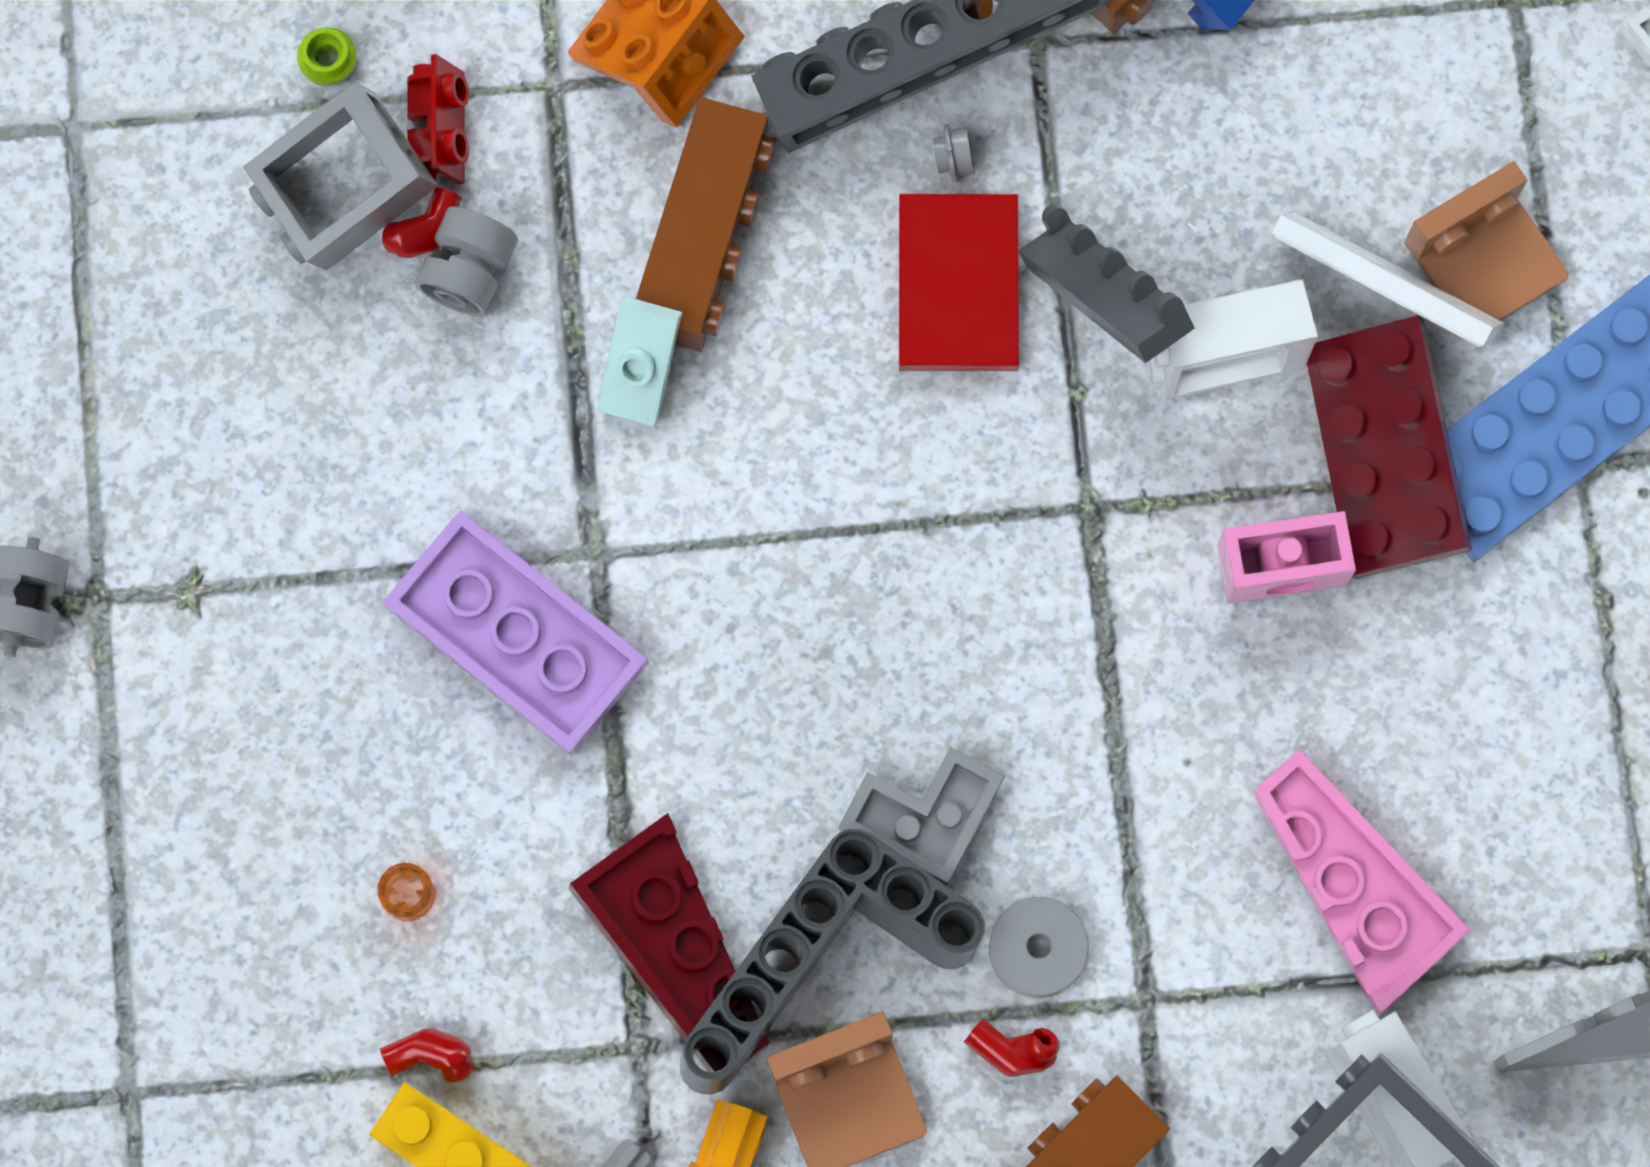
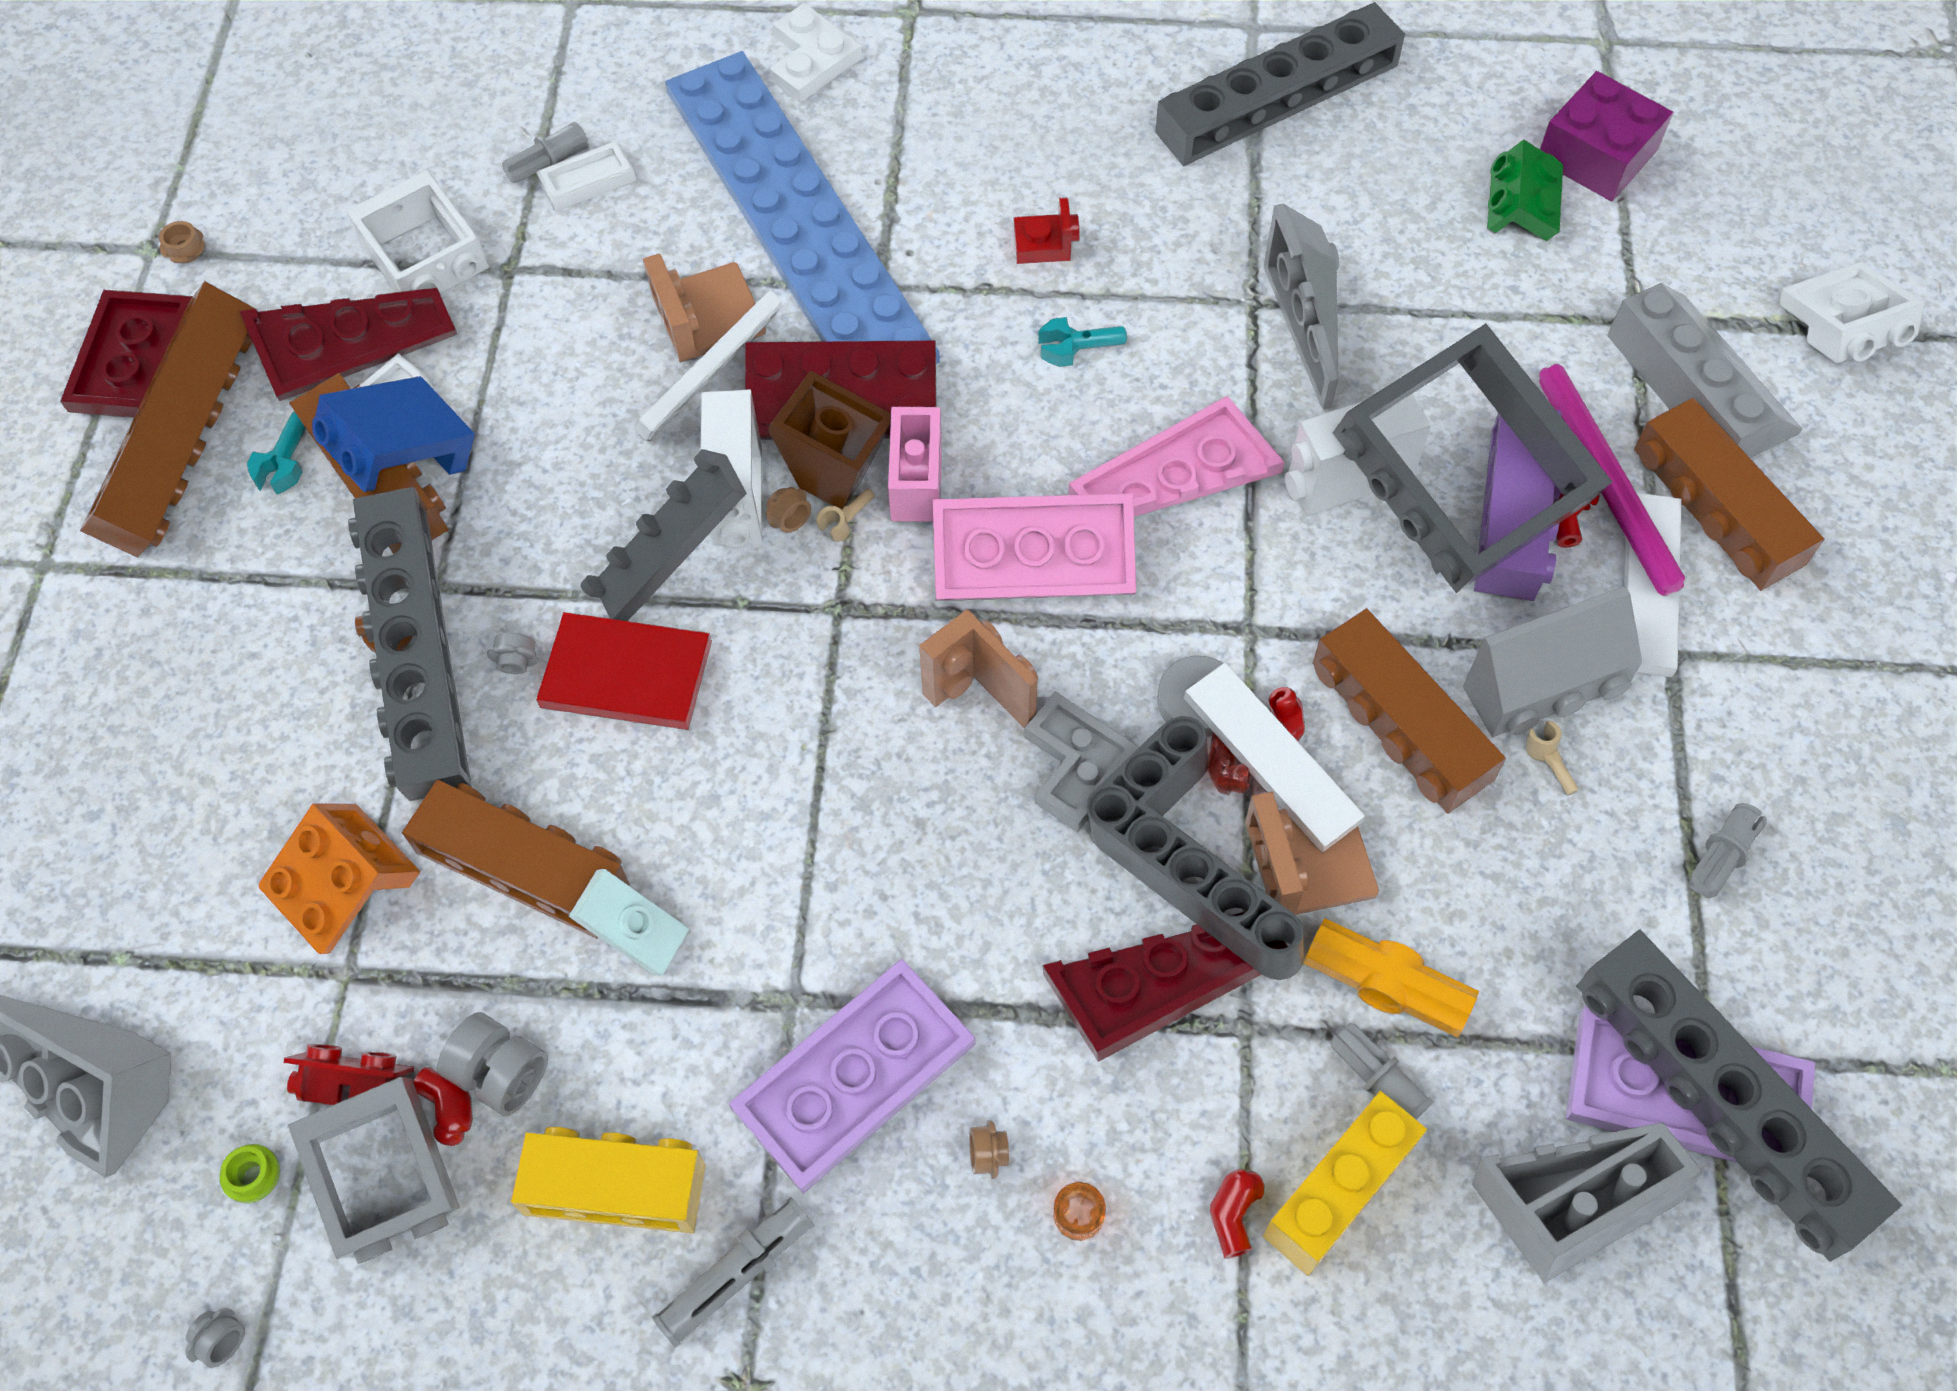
camera: 80 degrees left, 15 degrees down
(164, 75) = (214, 1337): none -> light grey plate
(314, 570) = (733, 1271): none -> light grey pin
(365, 410) = (609, 1180): none -> yellow brick
(455, 787) = (988, 1149): none -> medium nougat plate
(948, 983) = (1223, 771): none -> clear red arm
(958, 1037) = (1274, 757): none -> white tile
(1008, 649) = (976, 650): none -> nougat bracket
(1195, 720) = (1034, 547): none -> bright pink plate
(1206, 419) = (788, 509): none -> medium nougat plate
(1215, 488) = (834, 514): none -> tan hand
(1302, 444) = (828, 438): none -> reddish brown slope
(1536, 731) = (1073, 340): none -> teal bar

